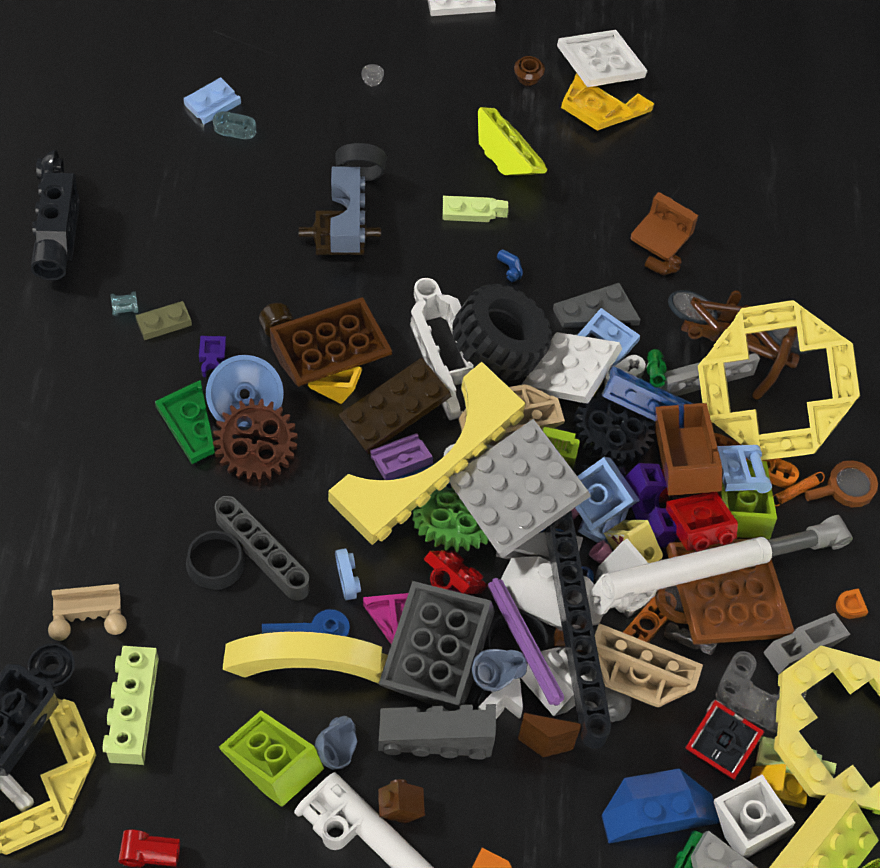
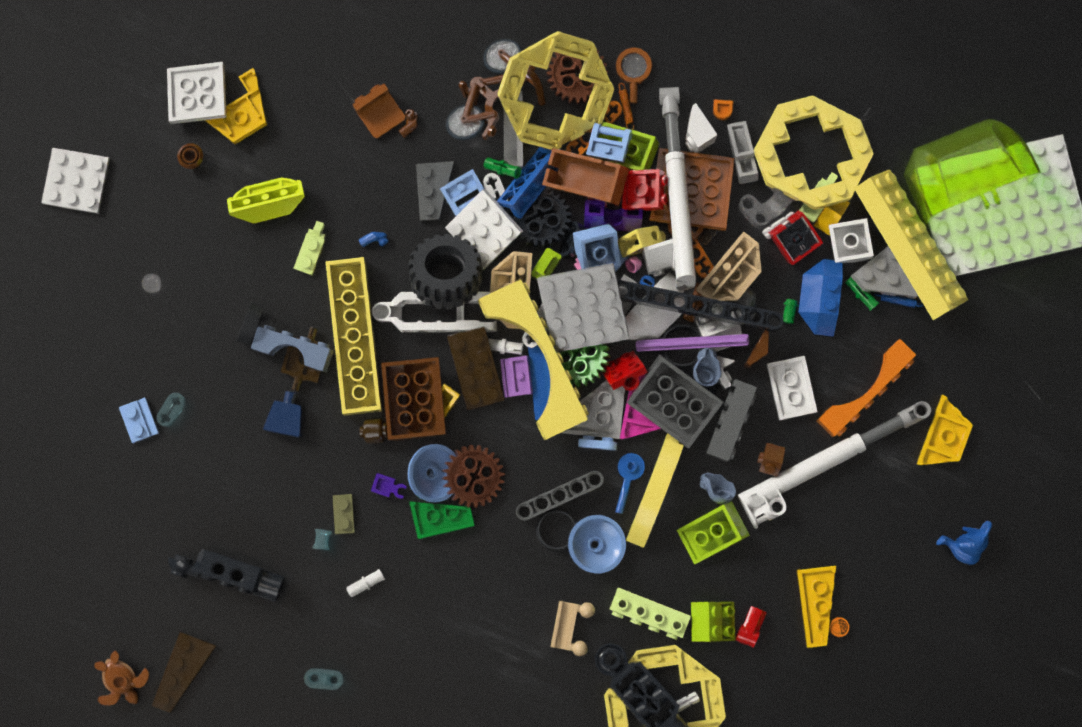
camera: 65 degrees left, 25 degrees up
(83, 363) = (365, 583): none -> white axle
(143, 793) = (713, 621): none -> lime slope
(206, 588) = (609, 539): none -> medium blue dish
(263, 230) = (285, 417): none -> dark blue torso
(387, 266) = (353, 336): none -> light yellow brick
(387, 565) = (604, 411): none -> light grey plate
(434, 433) = (506, 346): none -> white pin
(513, 803) = (791, 388): none -> white plate
(620, 768) = (789, 311): none -> green pin
(796, 401) = (577, 89): none -> copper gear
(807, 571) = (699, 131): none -> white slope

